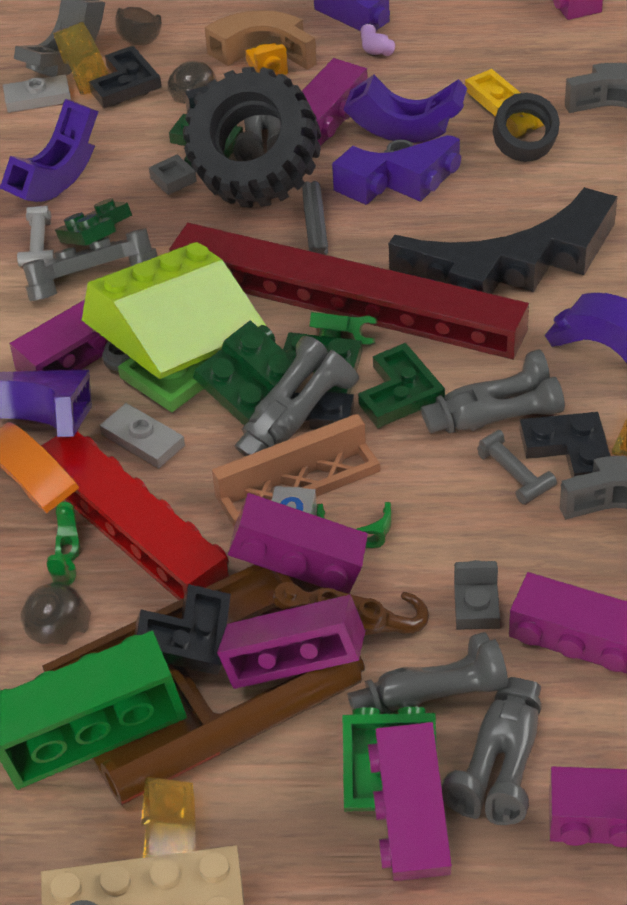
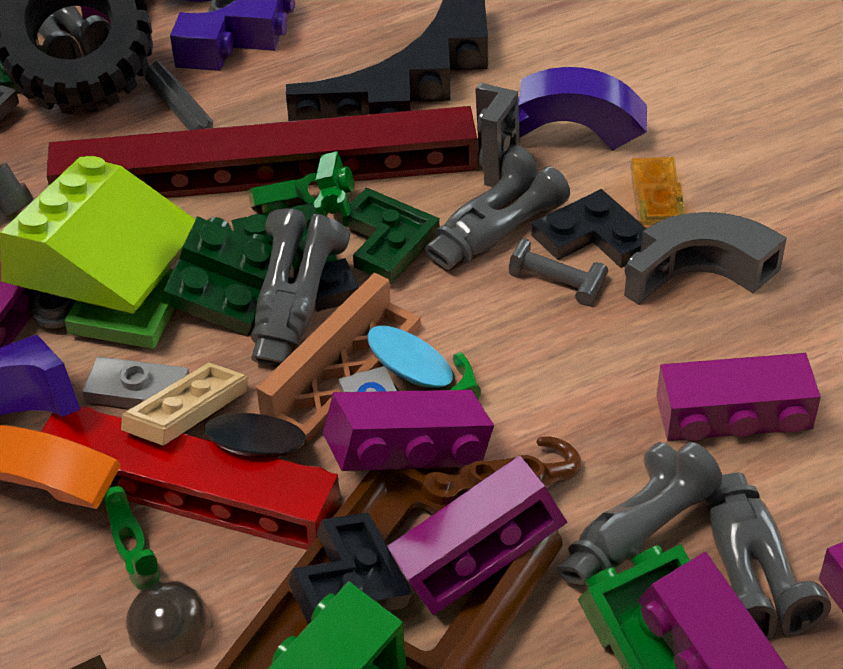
camera: 30 degrees left, 0 degrees up
(157, 461) = (184, 403): none -> tan tile
(191, 504) = (254, 434): none -> black piece
(345, 490) = (409, 357): none -> medium azure piece
(380, 333) = (334, 185): none -> green plate
(476, 595) = (613, 412): dark grey bracket -> none
(534, 329) = (496, 127): none -> dark grey bracket

